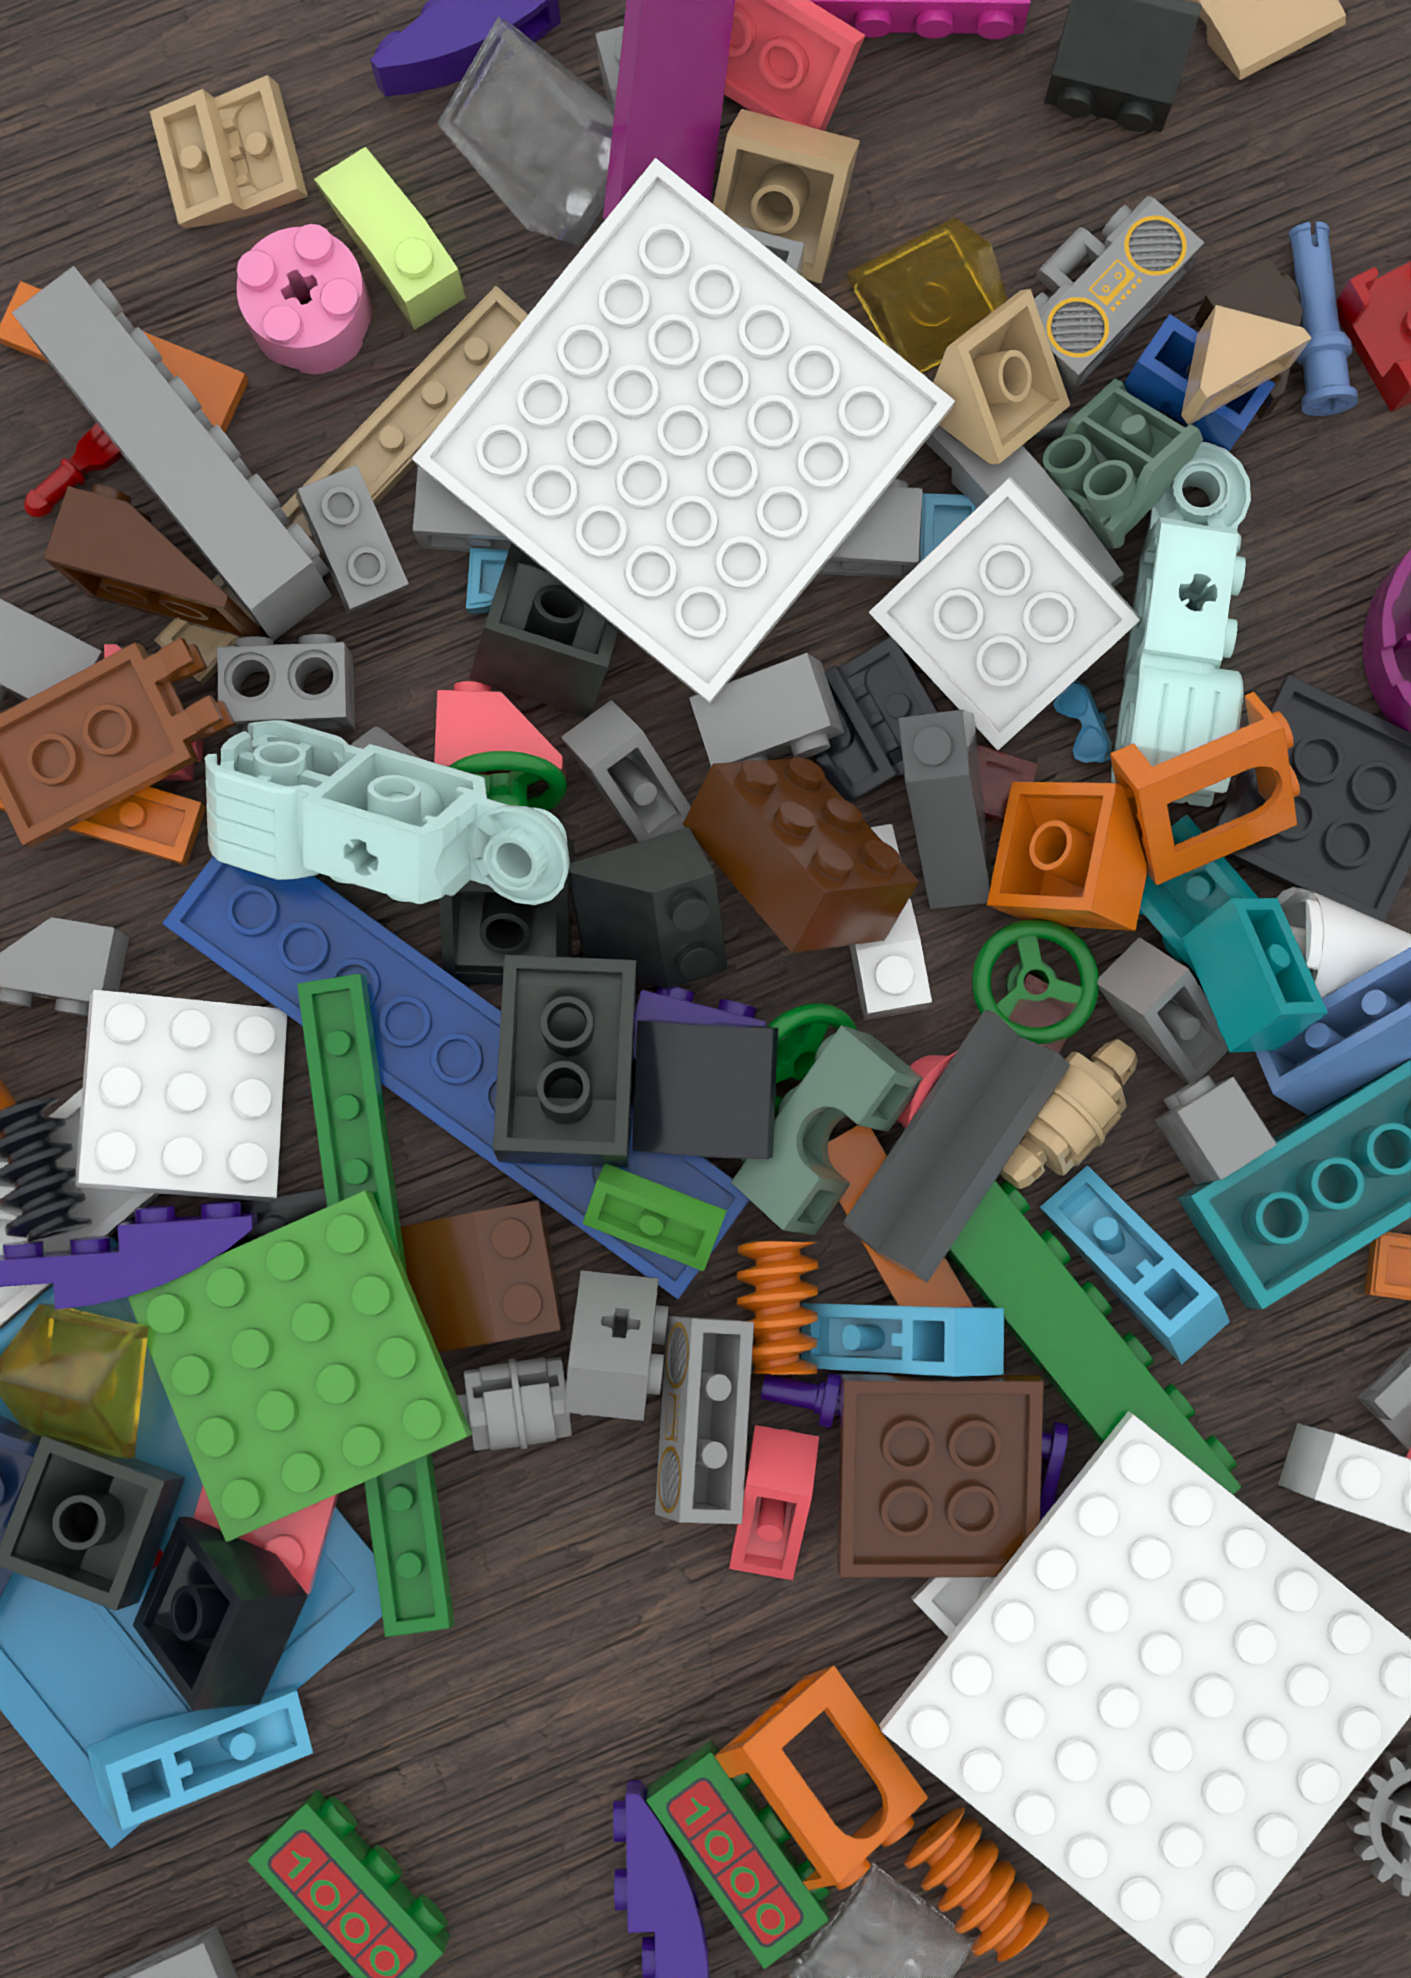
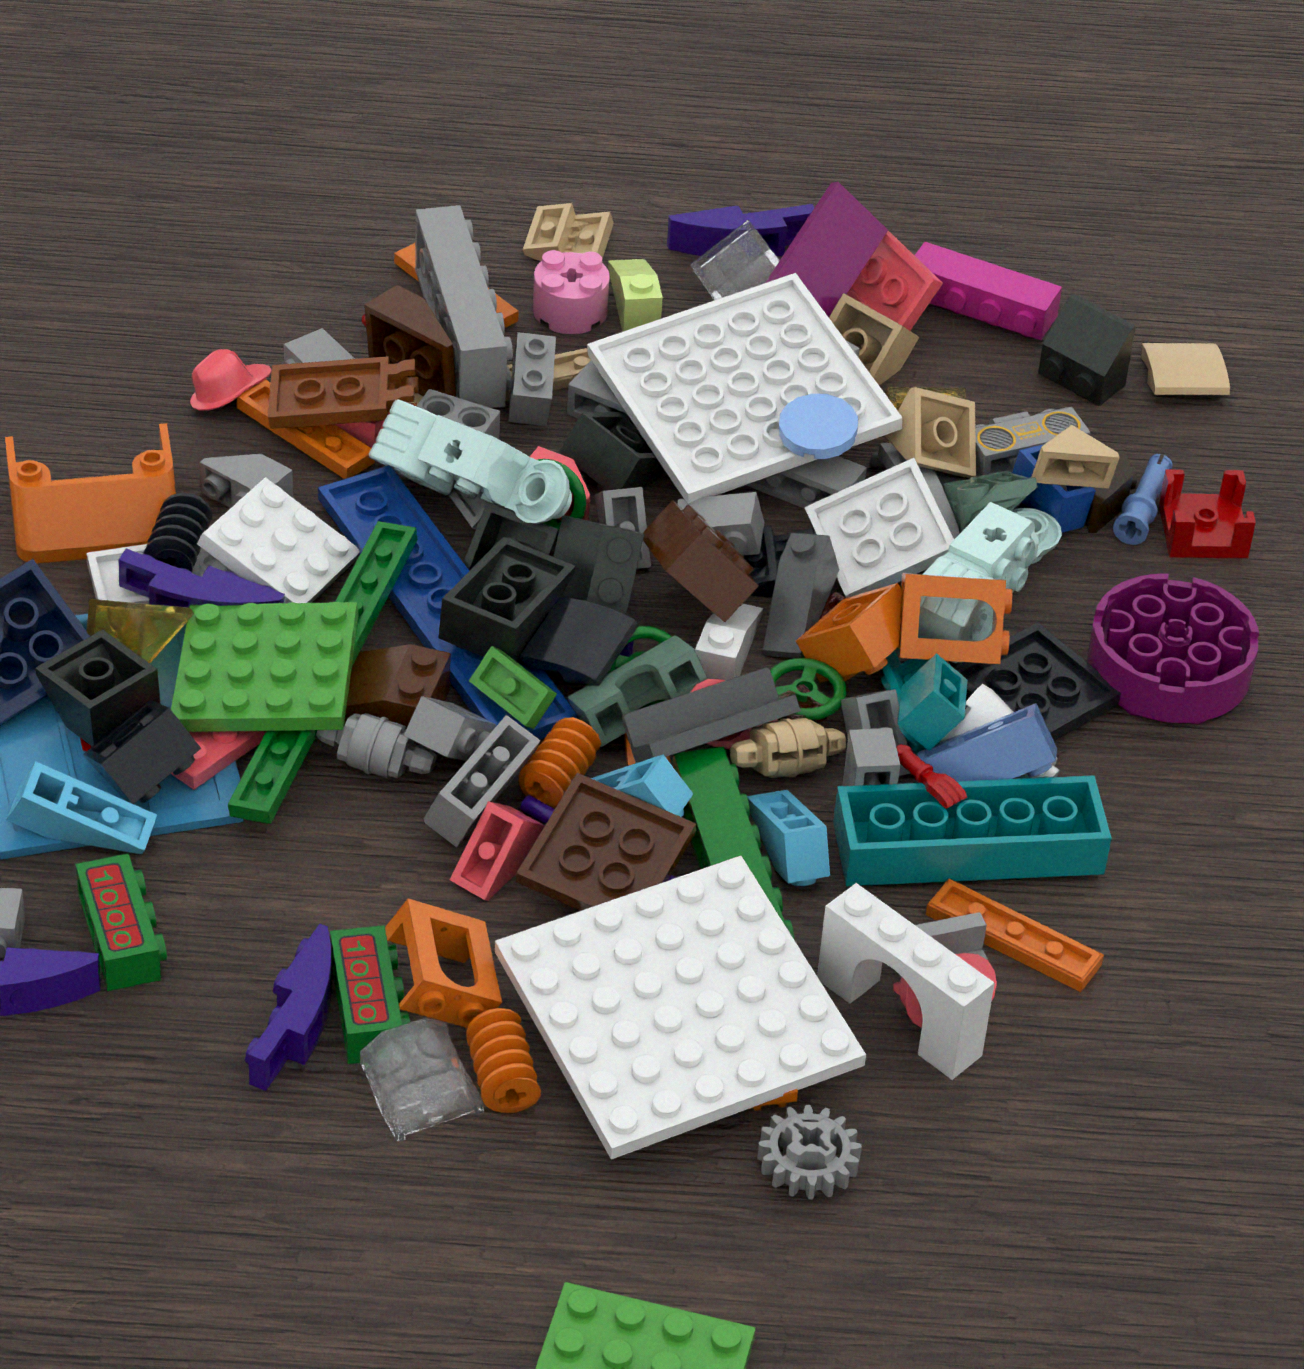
camera: 20 degrees right, 40 degrees down
(844, 485) = (818, 426): none -> light blue tile
(1328, 1130) = (939, 785): none -> red piece

